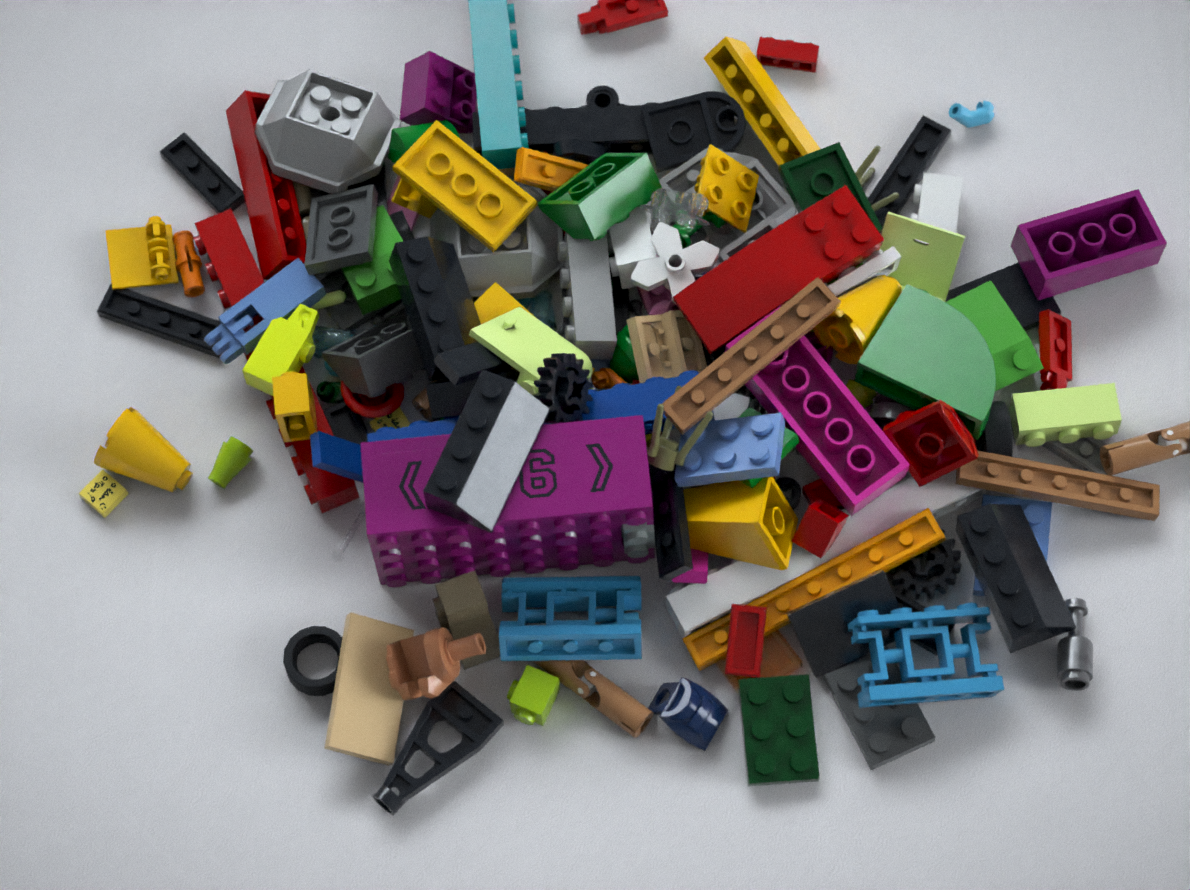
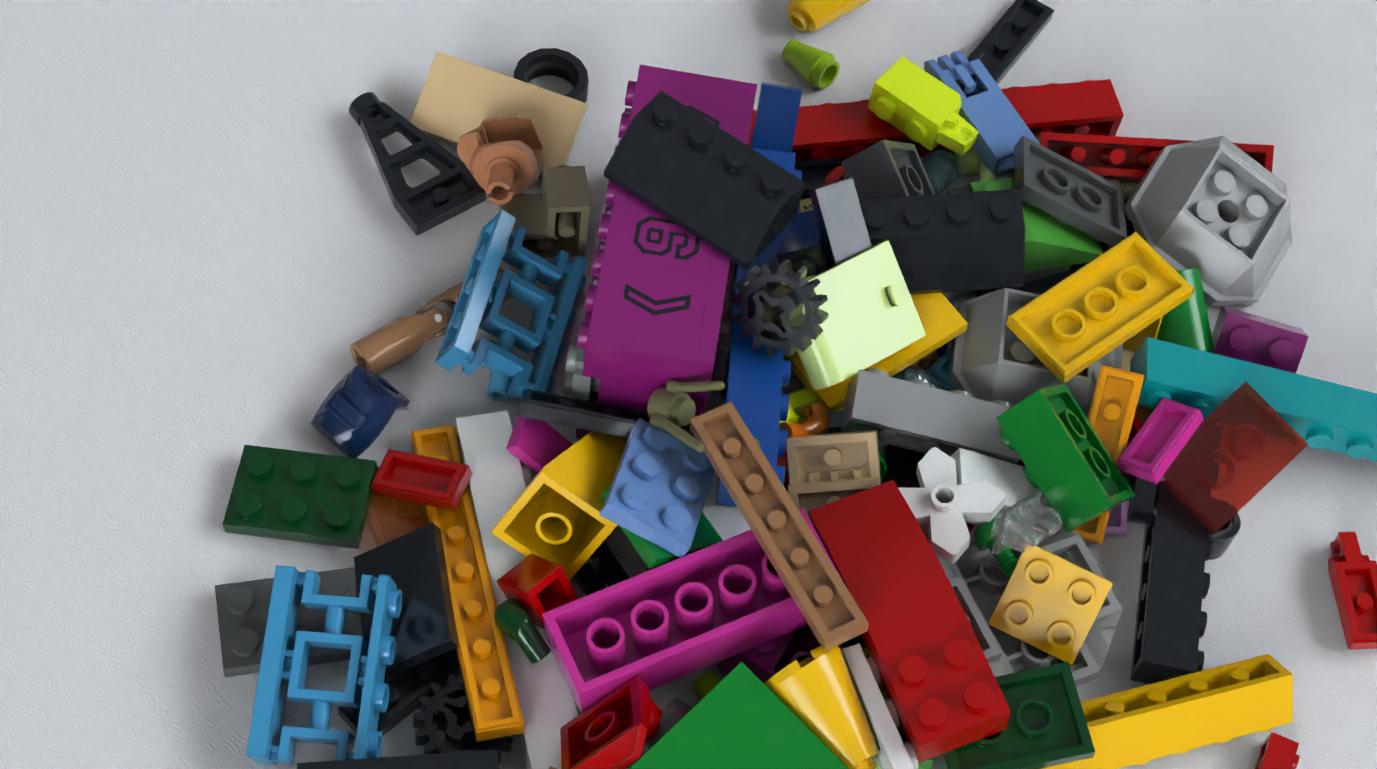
camera: 90 degrees right, 10 degrees down
(142, 255) = (1083, 42): yellow hinge -> none
(186, 253) = (1043, 75): orange pin -> none
(202, 174) = (1183, 116): black tile -> none
(294, 406) = (845, 90): yellow brick -> none
(533, 696) = (435, 262): lime brick -> none
(561, 90) = (1232, 457): none -> clear red tile
(565, 135) = (1160, 440): none -> dark pink tile
(689, 125) = (1160, 608): black tile -> none
(854, 531) = (515, 622): none -> dark green arm

